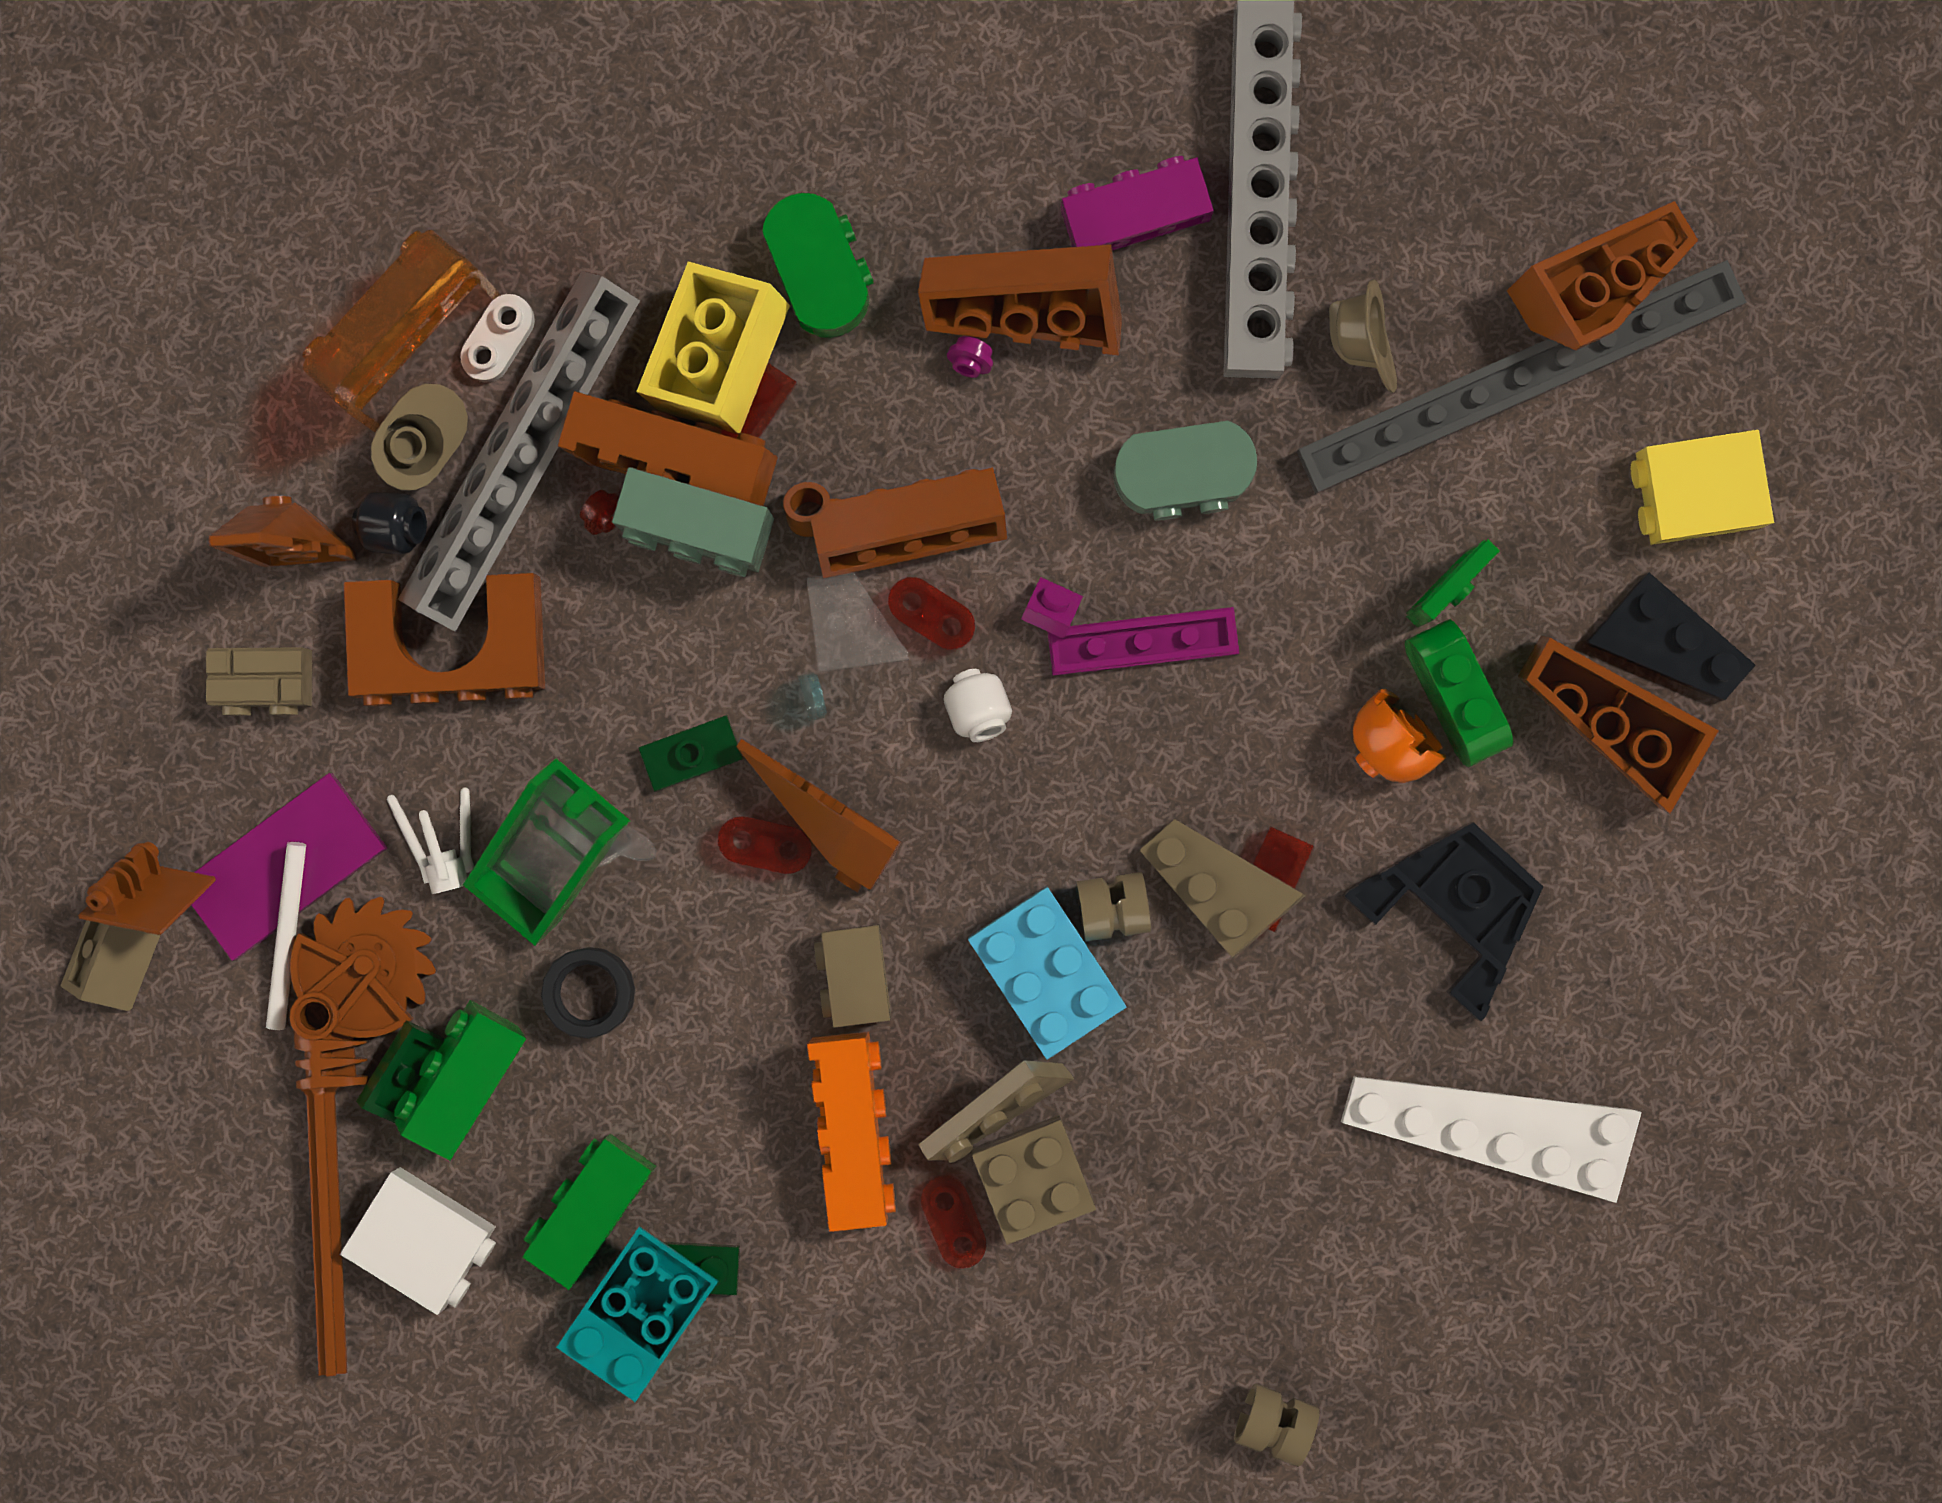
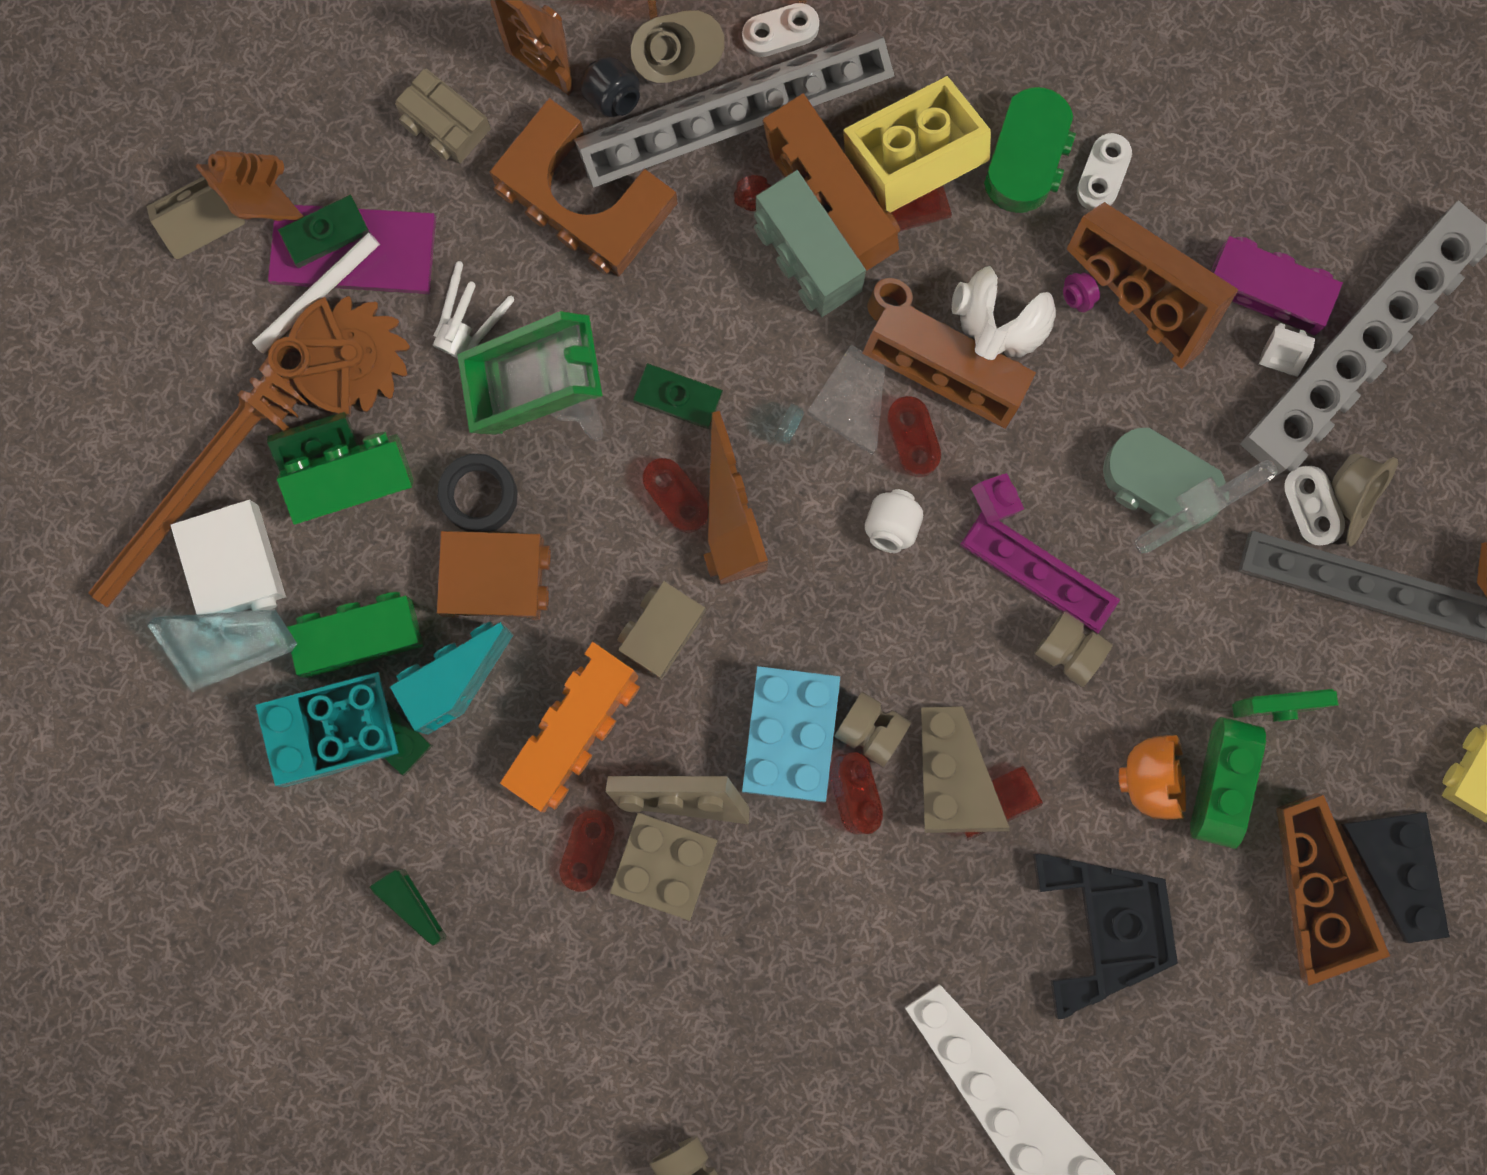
camera: 40 degrees right, 5 degrees down
(244, 874) = (324, 231): none -> dark green plate
(478, 1320) = (221, 644): none -> clear light blue wing
(664, 1054) = (492, 575): none -> dark orange panel
(711, 1189) = (448, 685): none -> teal slope
(840, 1401) = (405, 900): none -> dark green slope
(888, 451) = (1017, 338): none -> white animal
(900, 226) = (1104, 170): none -> white plate
(1146, 976) = (856, 796): none -> clear red plate
(1196, 257) = (1287, 350): none -> white tile
(1229, 687) = (1075, 650): none -> dark tan wheel
(1237, 466) = (1203, 502): none -> clear piece
(1333, 381) = (1311, 507): none -> white plate

